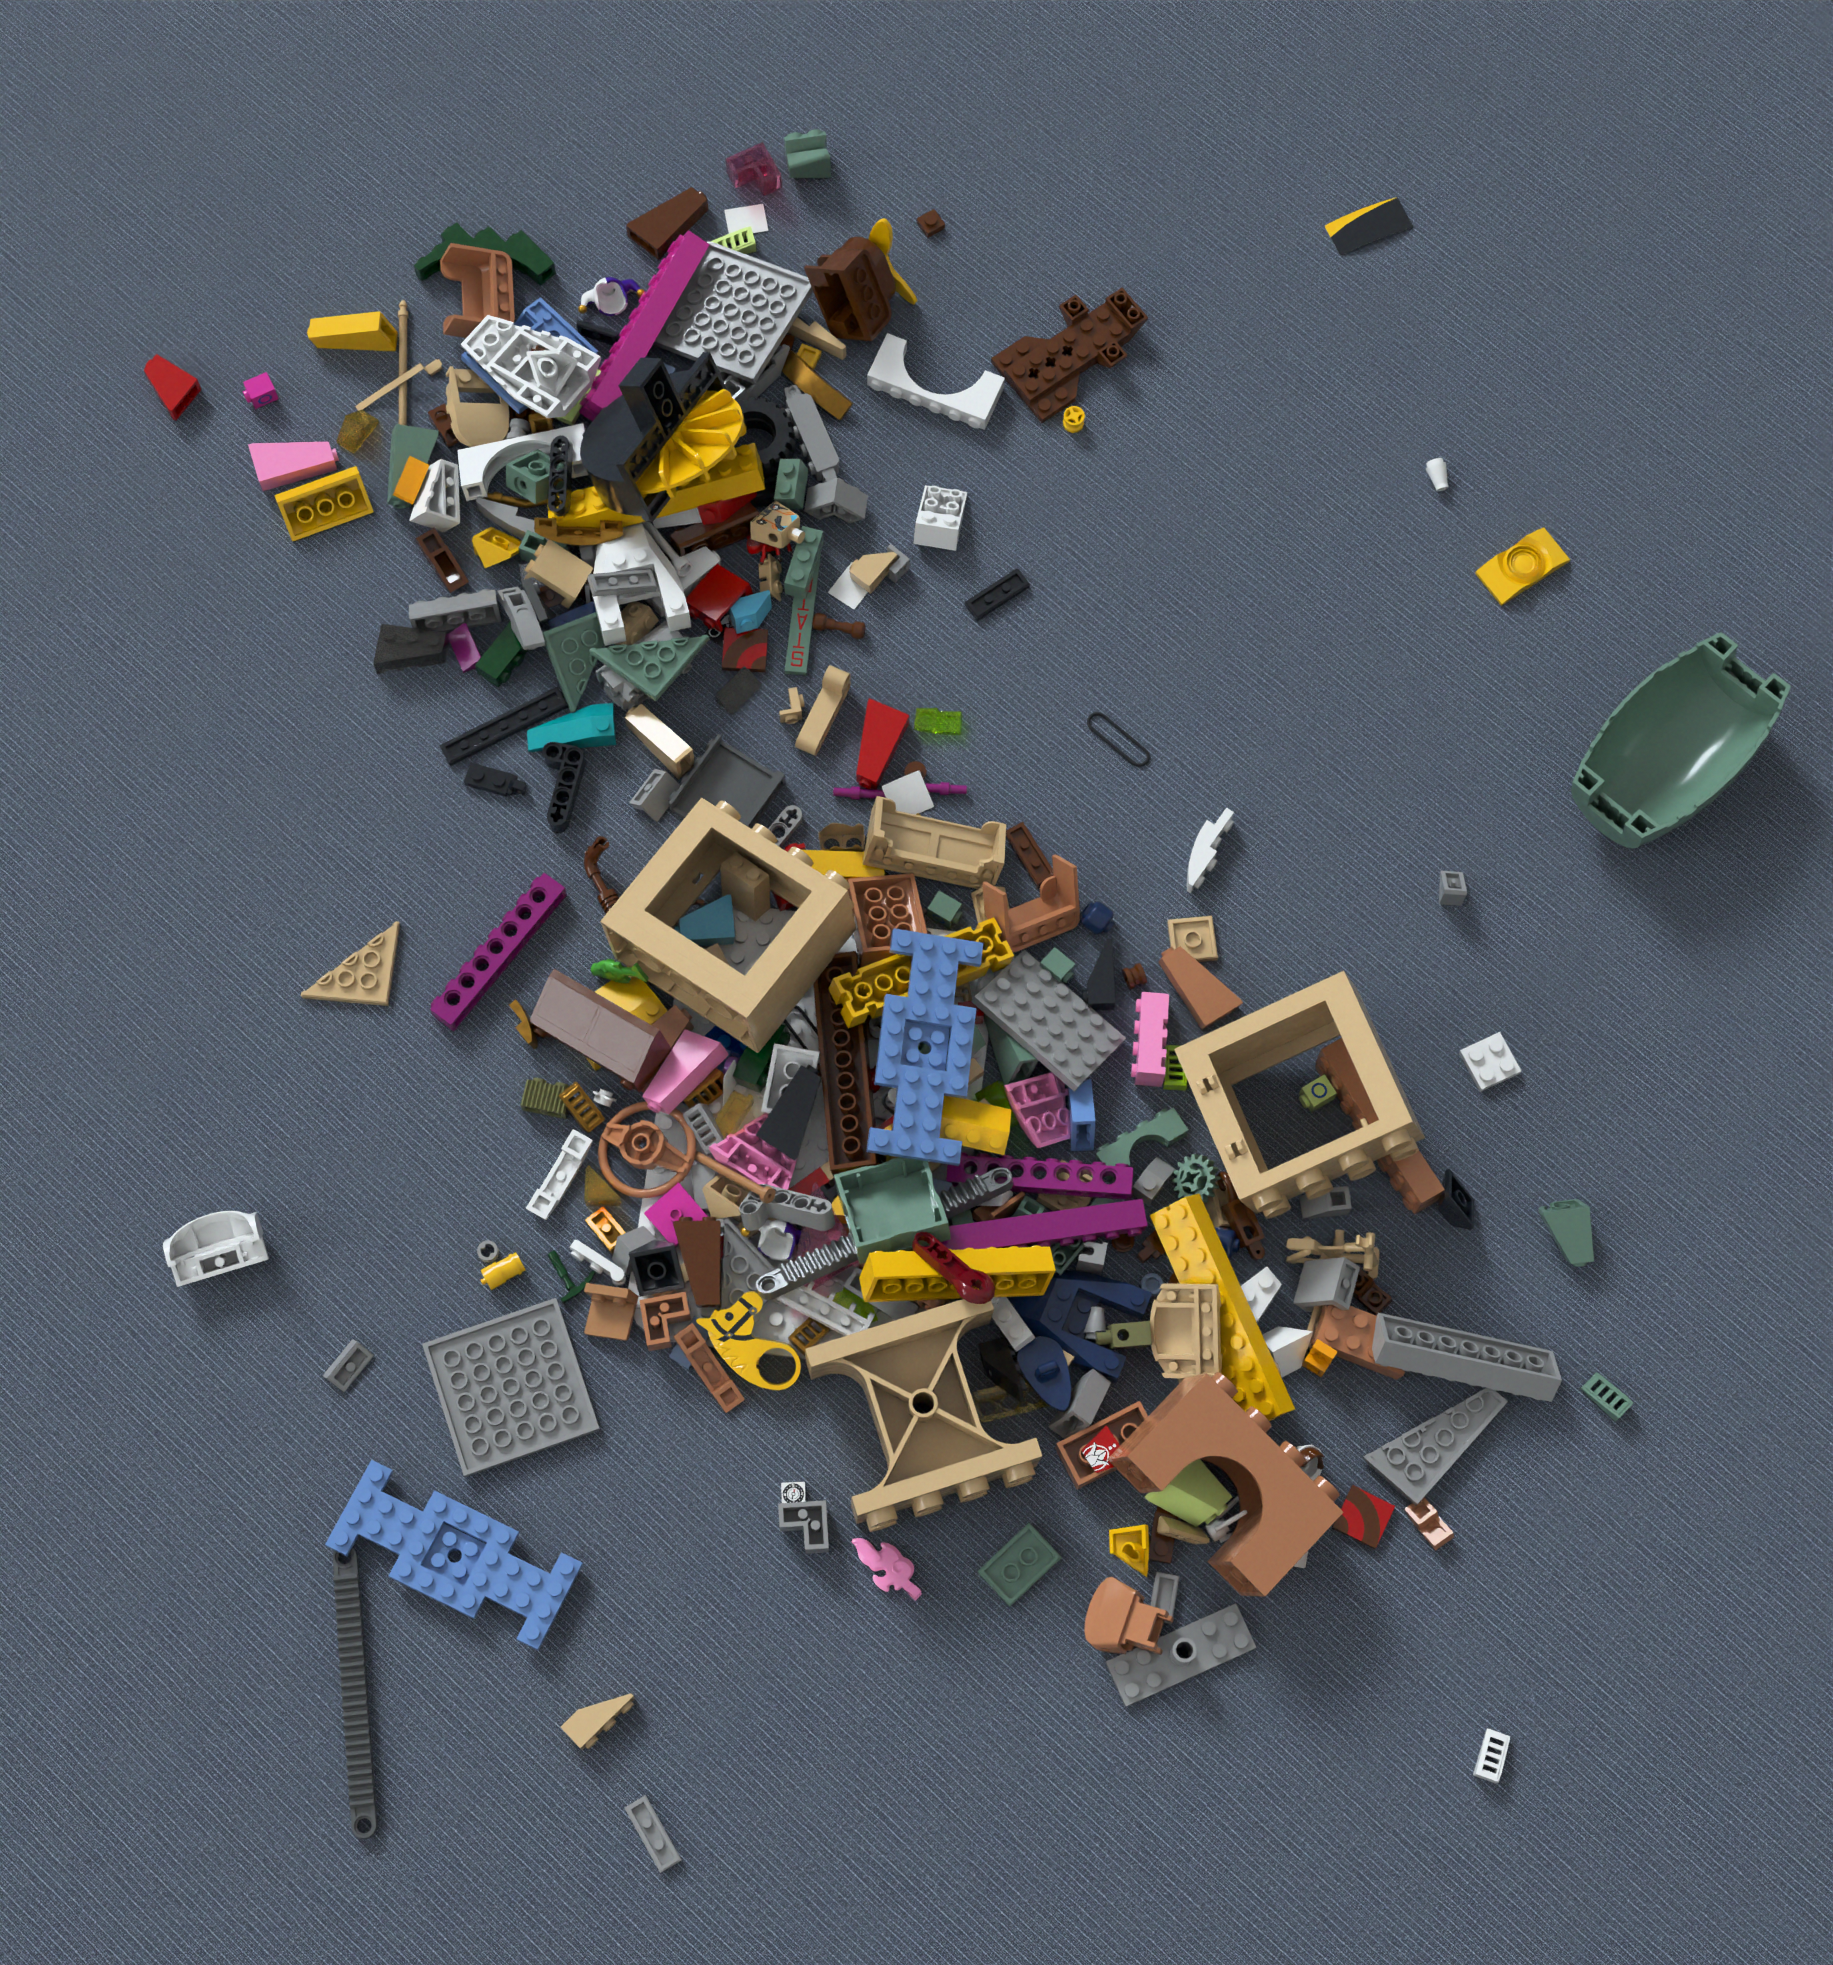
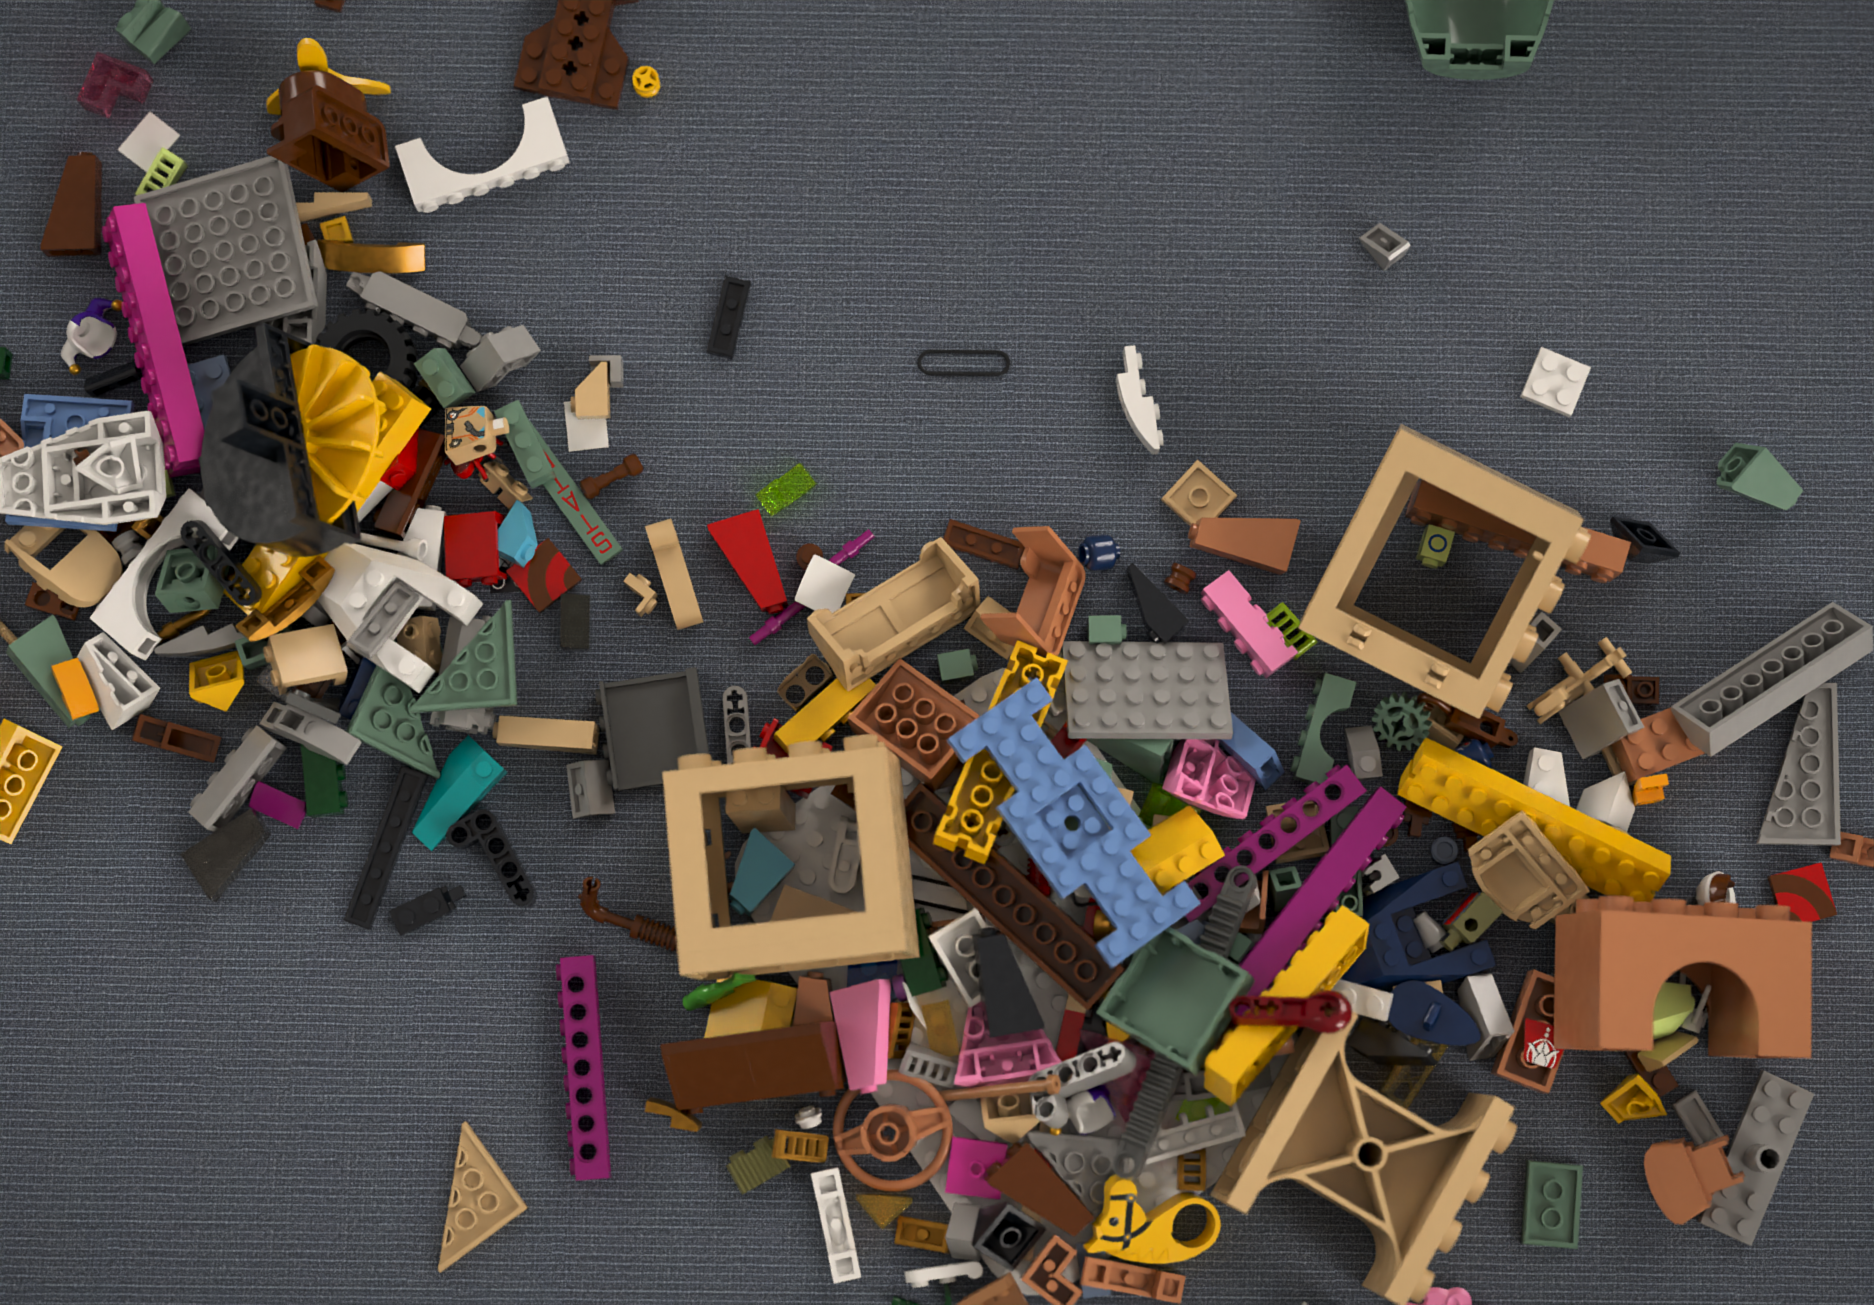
camera: 45 degrees left, 10 degrees up
(940, 517) = (609, 287): white slope -> none

